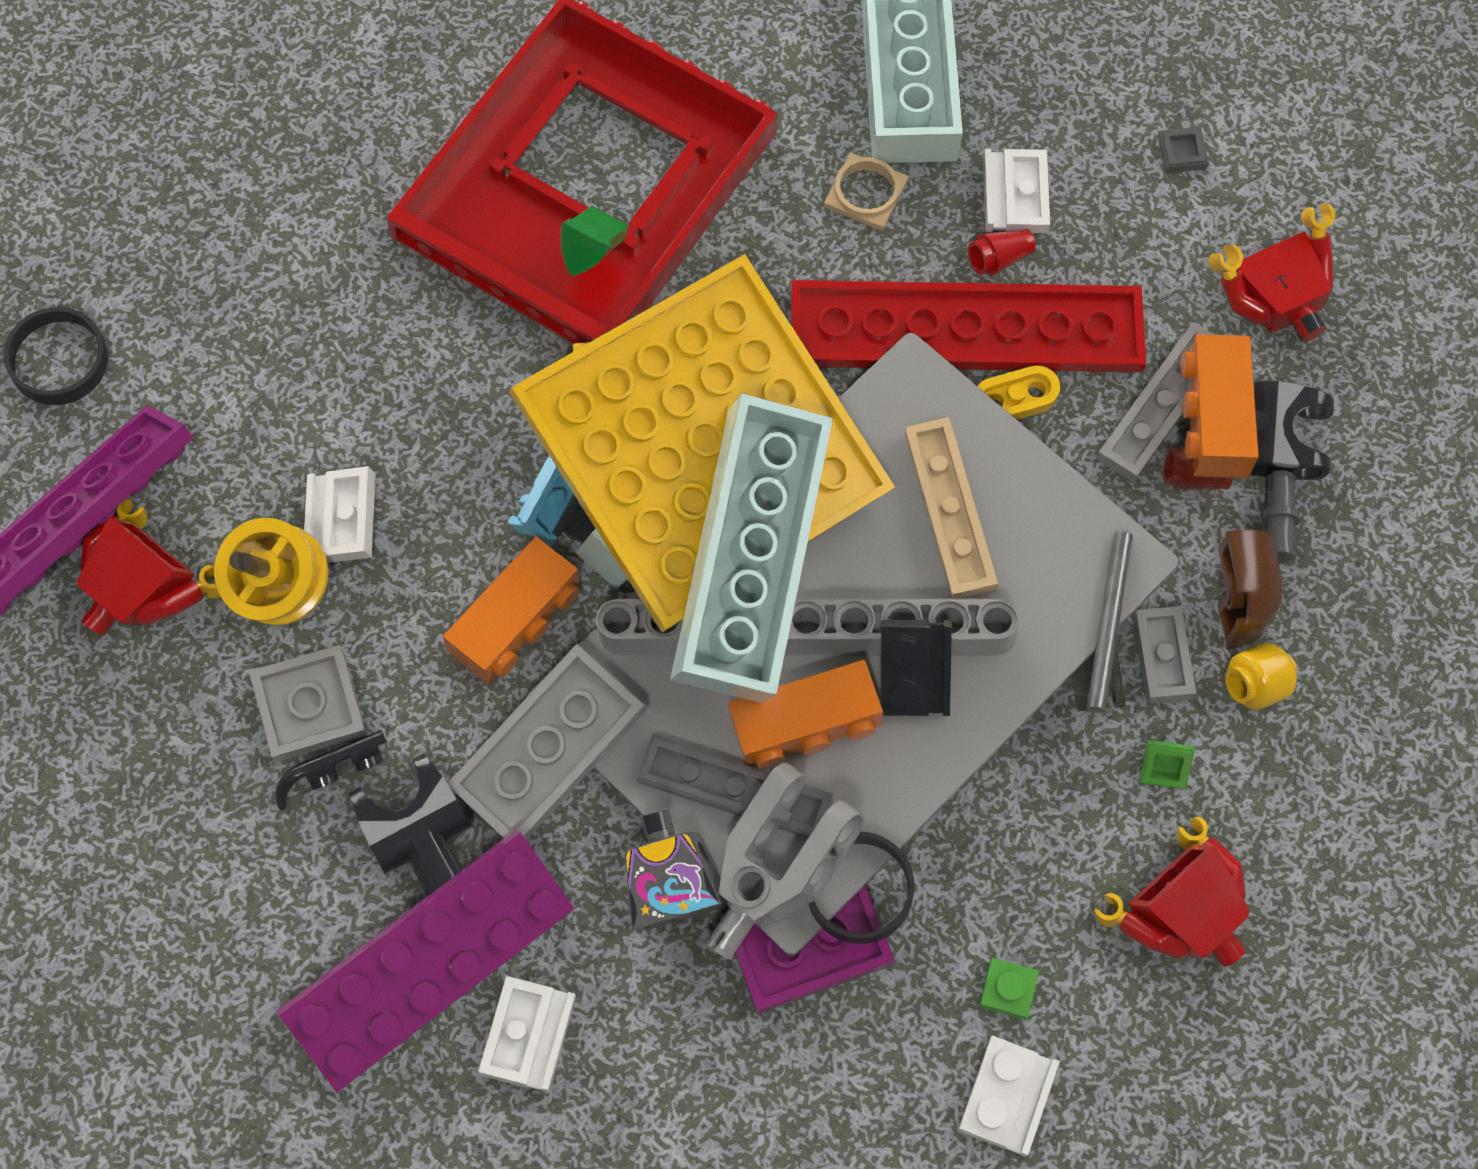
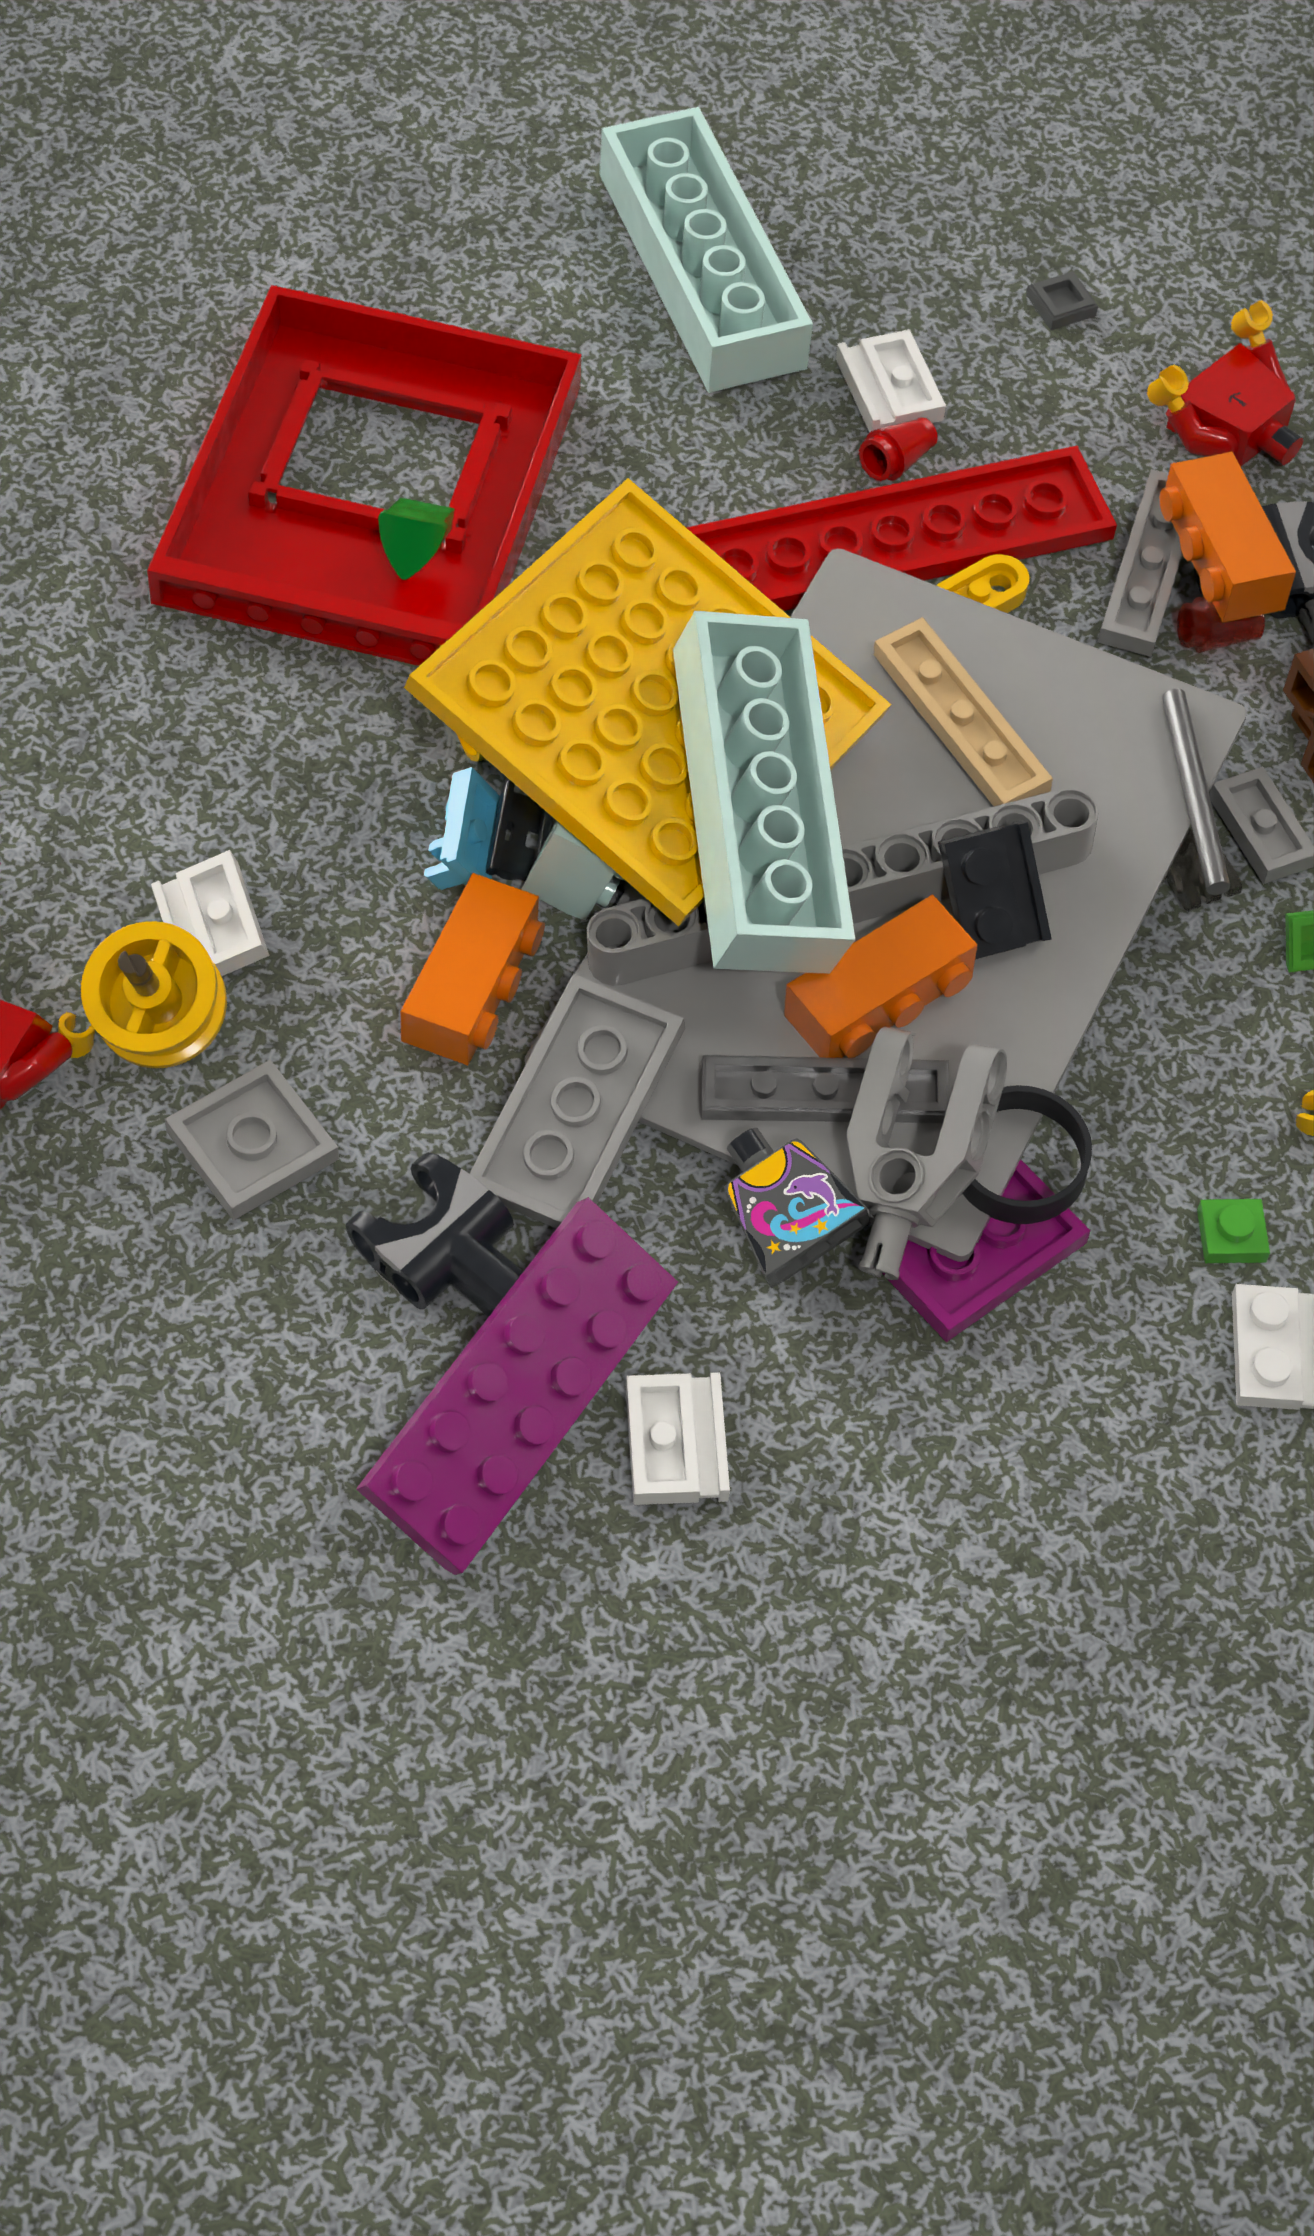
camera: 20 degrees left, 10 degrees down
(322, 768) = (300, 1207): black piece -> none
(872, 217) = (735, 447): tan piece -> none

